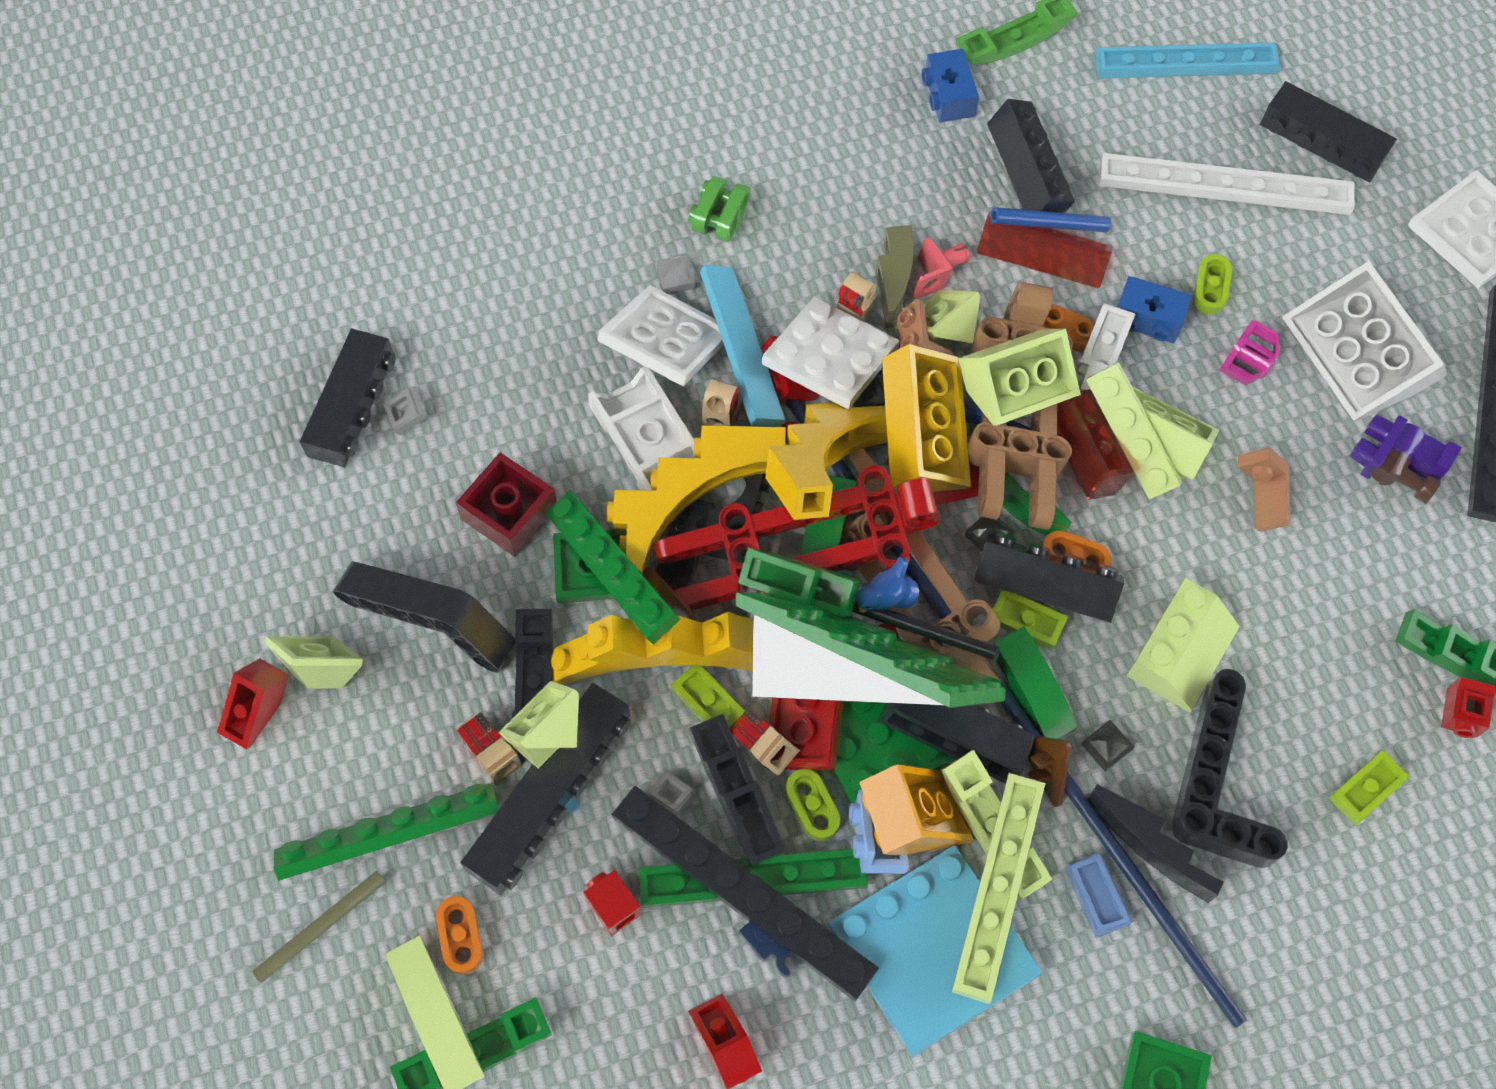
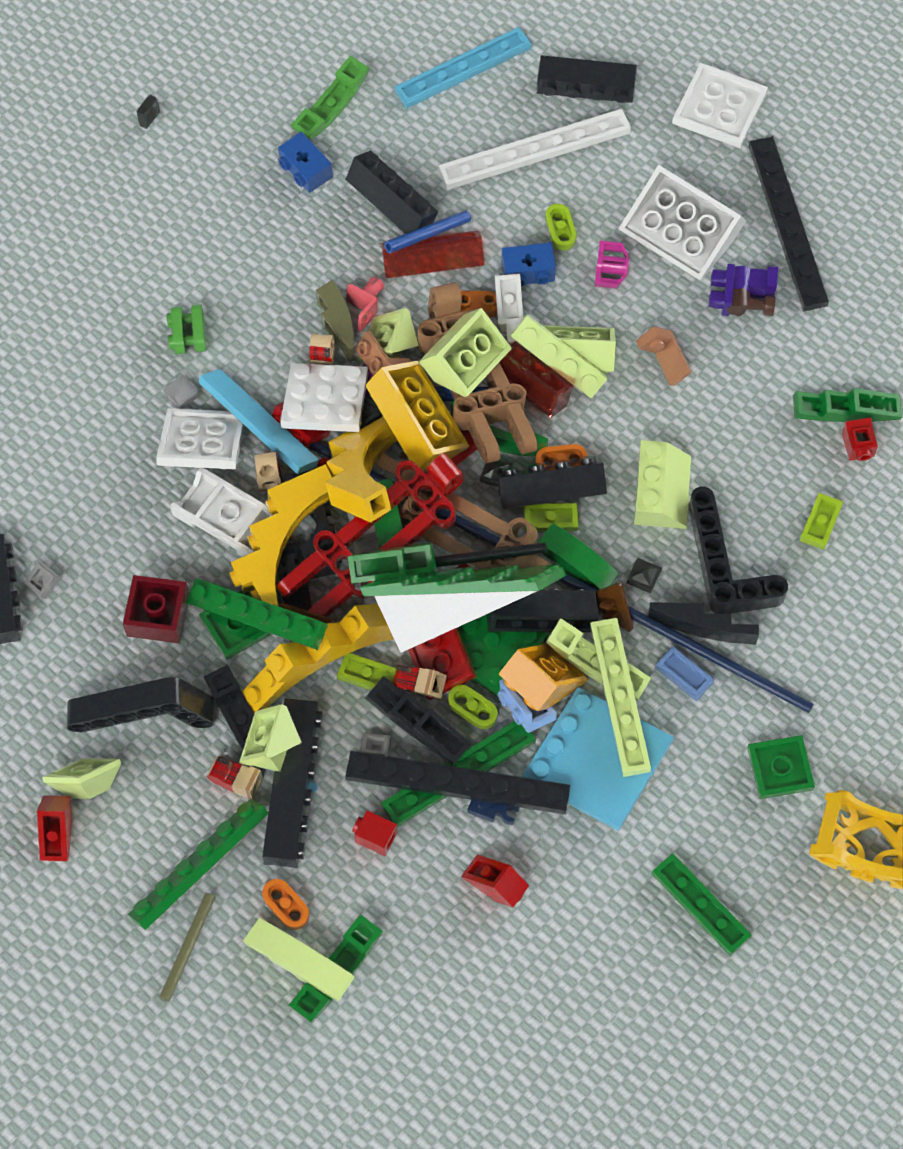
camera: 25 degrees left, 0 degrees up
(889, 590) = (453, 540): blue animal -> none

